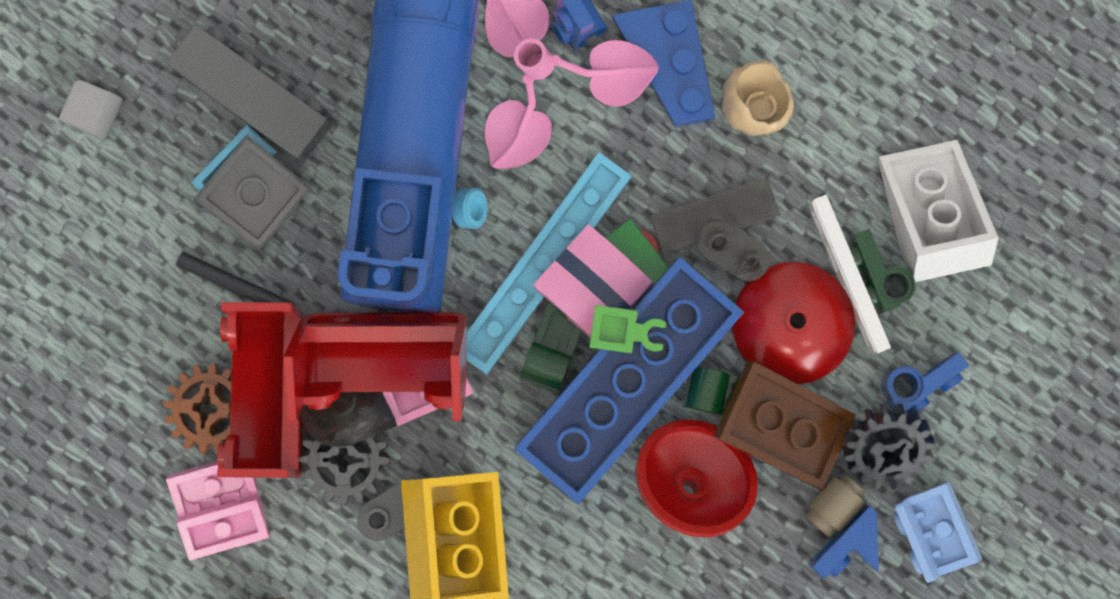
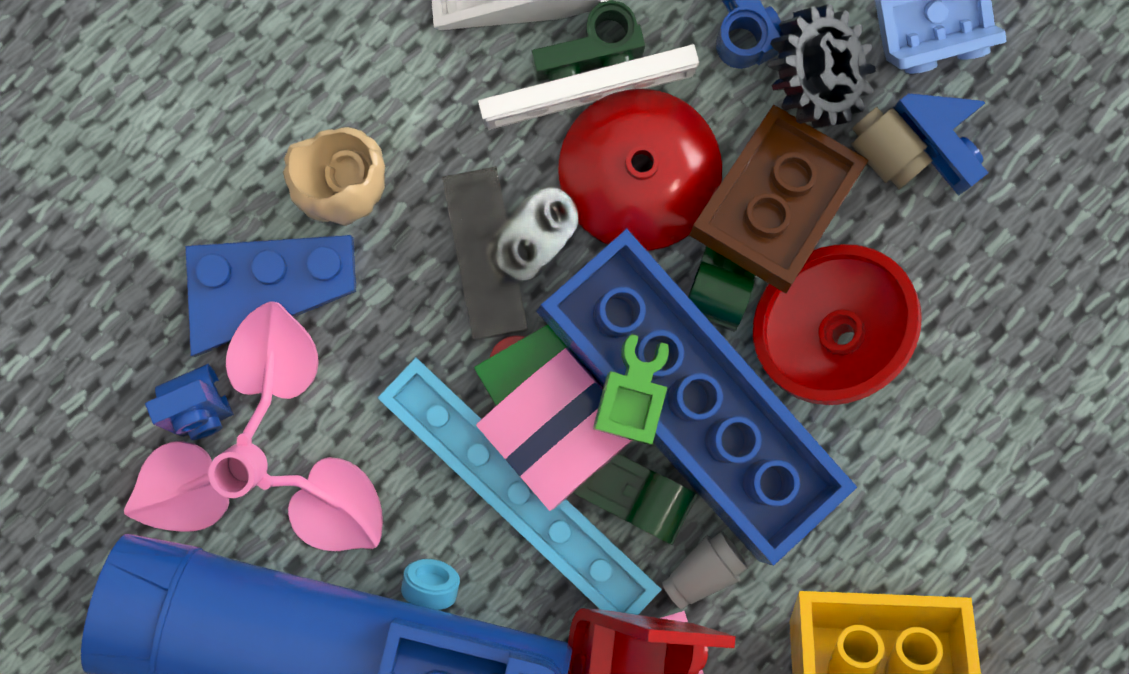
camera: 90 degrees left, 0 degrees up
(504, 406) = (706, 570): none -> light grey cone

